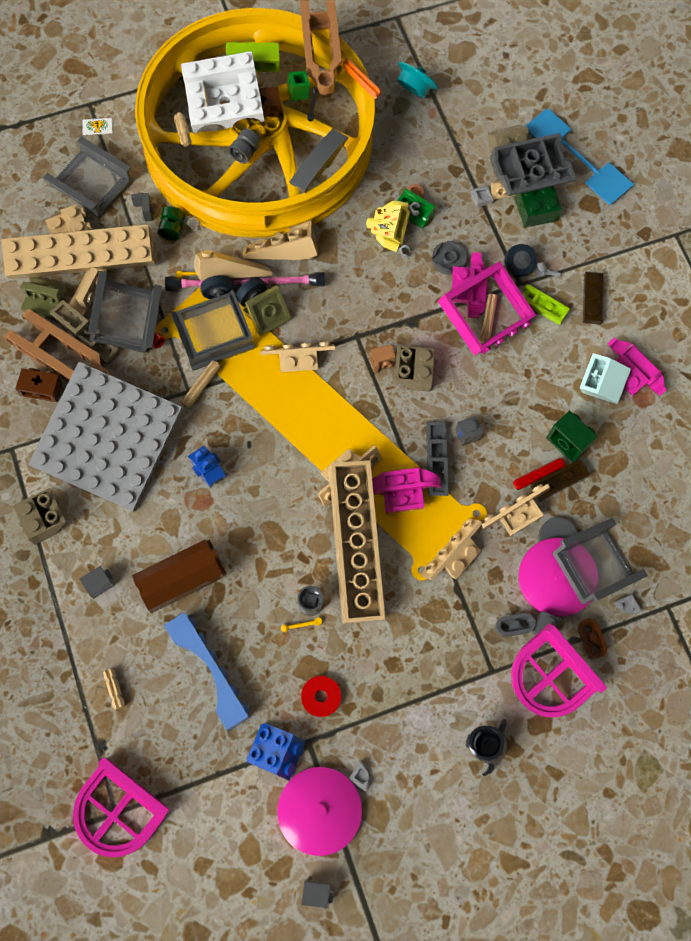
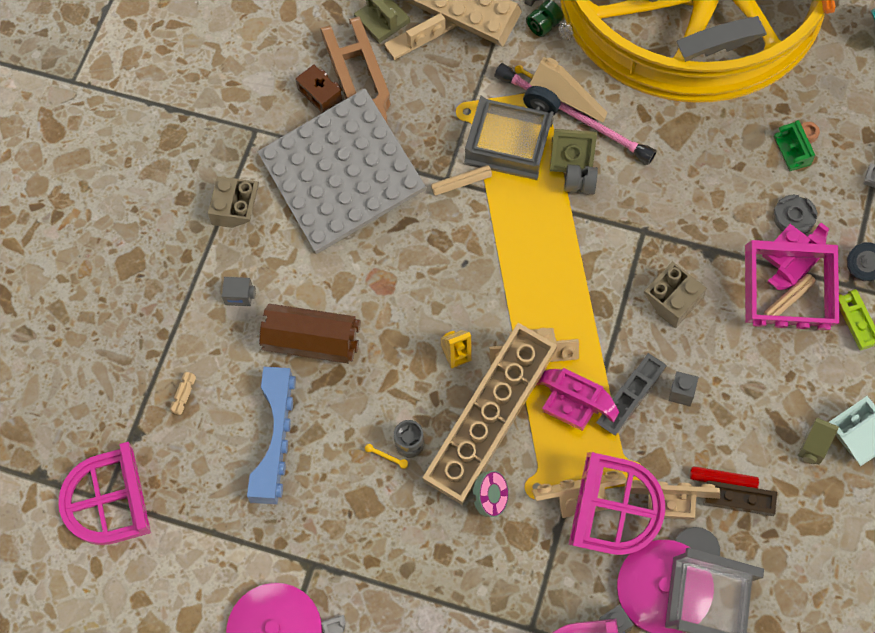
camera: 45 degrees right, 5 degrees down
(79, 327) = (393, 68): dark tan slope -> none
(124, 314) = (437, 72): clear piece -> none
(158, 341) = (452, 115): red hinge -> none
(206, 465) = (409, 254): blue hinge -> none
(250, 289) = (571, 121): black wheel -> none
(276, 751) = (277, 550): blue bracket -> none
(290, 326) = (581, 179): none -> dark grey wheel
(292, 245) = (644, 107): tan wedge -> none
(293, 509) = (457, 347): none -> yellow slope
(298, 358) = (569, 213): tan bracket -> none
(325, 708) = (349, 519): red tile -> none
(382, 357) = (651, 265): medium nougat brick -> none
(391, 223) = (757, 144): light yellow torso -> none
(398, 598) = (491, 493): none -> tile
(469, 555) = (589, 499): none -> dark pink window
(514, 625) = (587, 600): dark grey plate -> none
(571, 436) = (783, 462): dark green brick -> none
(582, 404) = (817, 441): none -> olive slope

